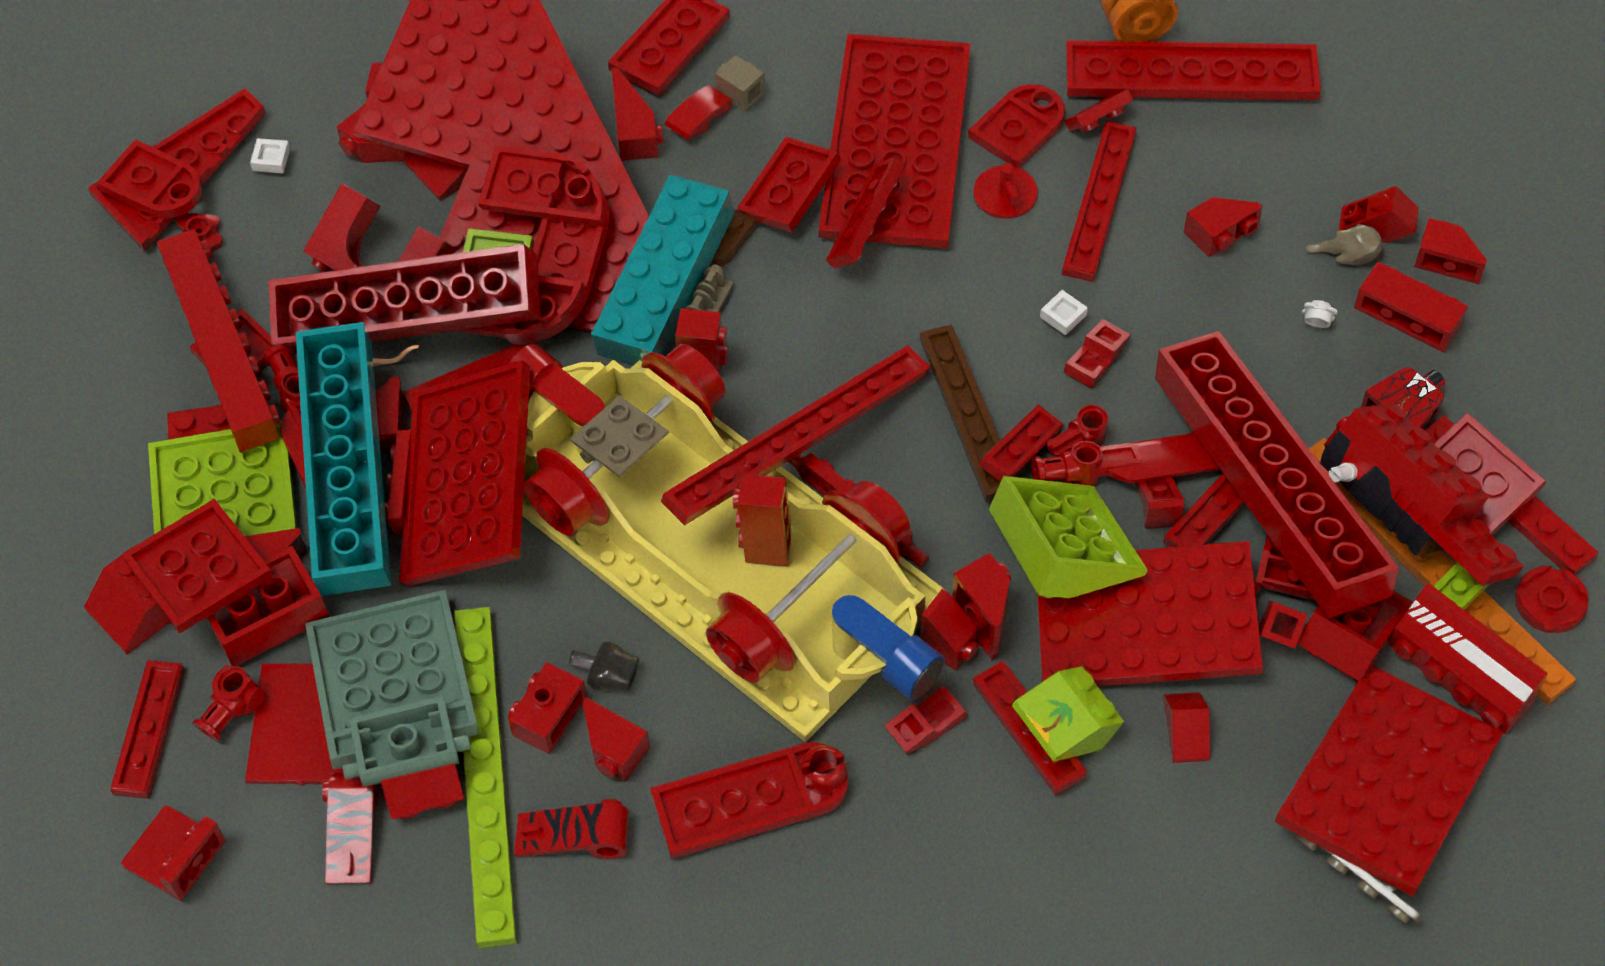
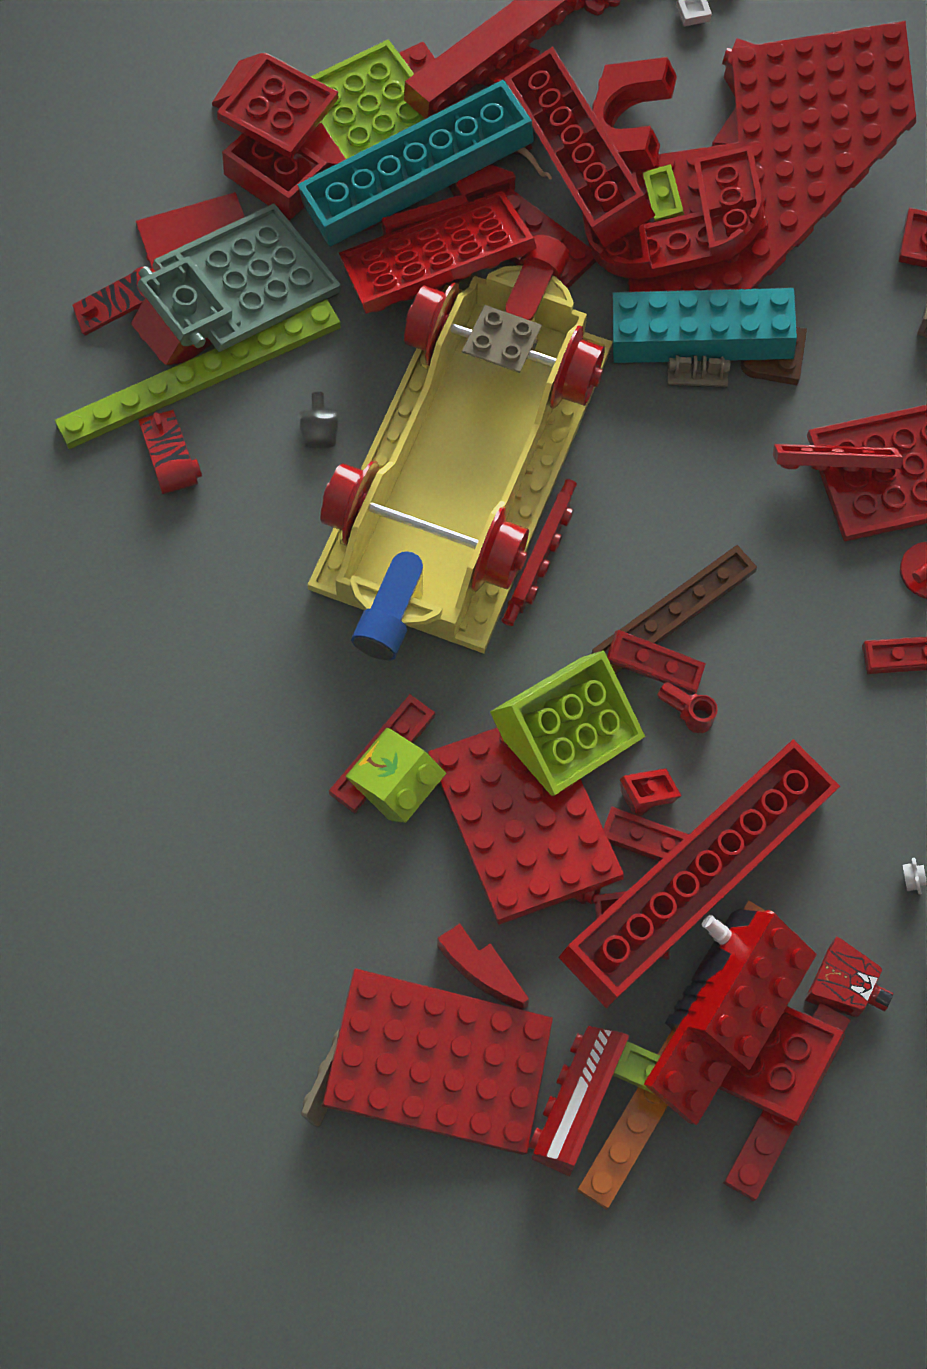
camera: 65 degrees right, 10 degrees up
(147, 729) = (155, 143): red tile -> none
(174, 851) = (59, 199): red bracket -> none
(232, 696) = (195, 181): red connector -> none
(546, 707) = (265, 393): red brick -> none
(614, 741) = (253, 448): red slope -> none
(635, 122) = (851, 252): red slope -> none
(695, 113) = (888, 293): red slope -> none
(704, 333) = (642, 376): red brick -> none
(750, 797) = (241, 564): red plate -> none
(763, 519) = (474, 476): red brick -> none
(789, 184) = (845, 390): red plate -> none
(795, 434) = (576, 476): red plate -> none
(927, 721) = (360, 673): red slope -> none
(949, 630) = (441, 658): red slope -> none
(983, 595) = (477, 678): red slope -> none
(1063, 312) = (815, 656): white plate -> none
(1097, 354) = (785, 699): red slope -> none
(1126, 461) = (689, 773): red piece -> none
(1187, 727) = (433, 879): red slope -> none
(1282, 624) = (554, 927): red brick -> none
(1297, 708) = (482, 967): none -> red slope
(1355, 637) = (569, 1003): red slope -> none
(1551, 599) = (689, 1168): red tile -> none

